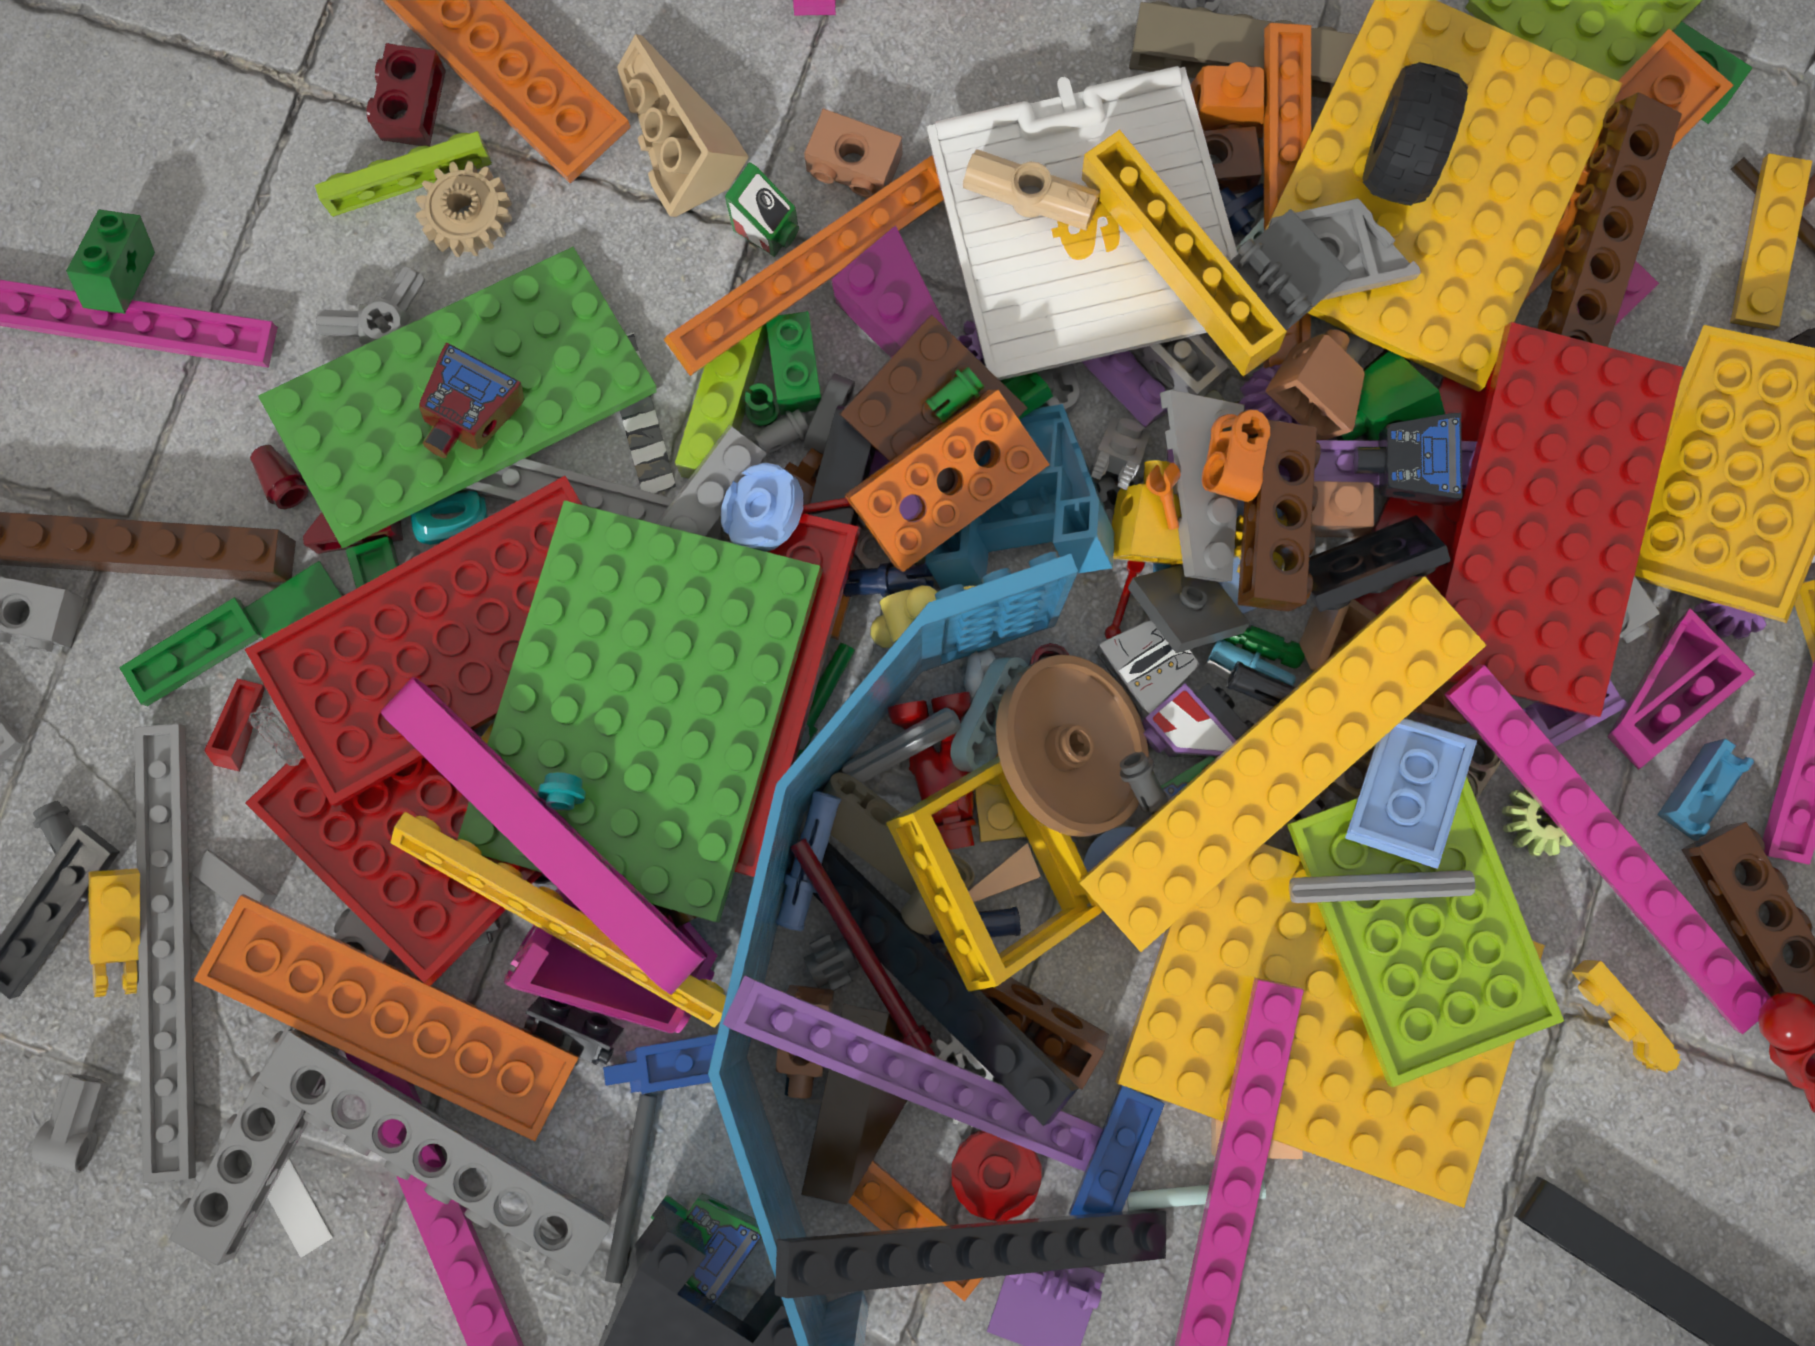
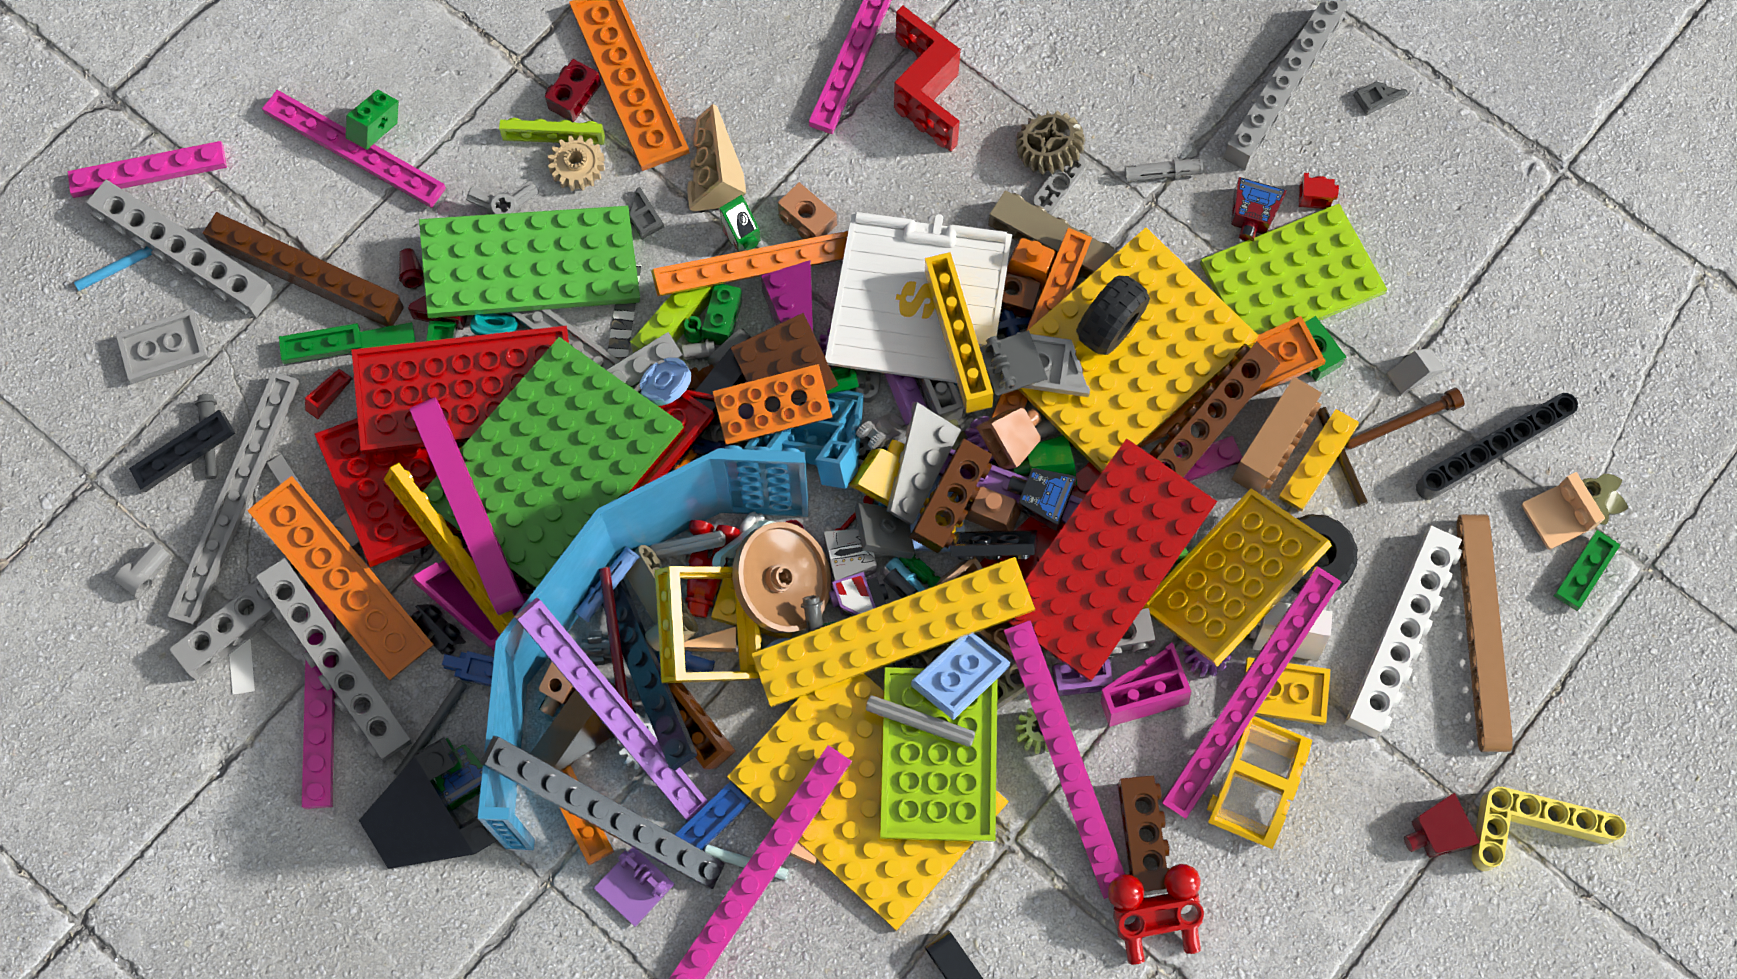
camera: 20 degrees right, 10 degrees down
(114, 926) = (214, 472): yellow hinge -> none
(276, 734) = (347, 405): clear axle -> none
(466, 401) = (529, 264): torso -> none
(562, 791) = (487, 486): teal plate -> none
(604, 253) = (644, 216): none -> dark grey tile
(958, 392) = (797, 359): green pin -> none
(995, 1176) = (641, 797): red tile -> none
(1005, 179) = (902, 277): tan piece -> none
(1162, 487) = (891, 451): orange hand -> none
(1233, 459) = (936, 456): orange piece -> none
(1627, 1015) = (1039, 862): yellow hinge -> none
(1704, 788) = (1143, 752): dark azure hinge -> none
(1706, 229) = (1278, 436): none -> medium nougat brick

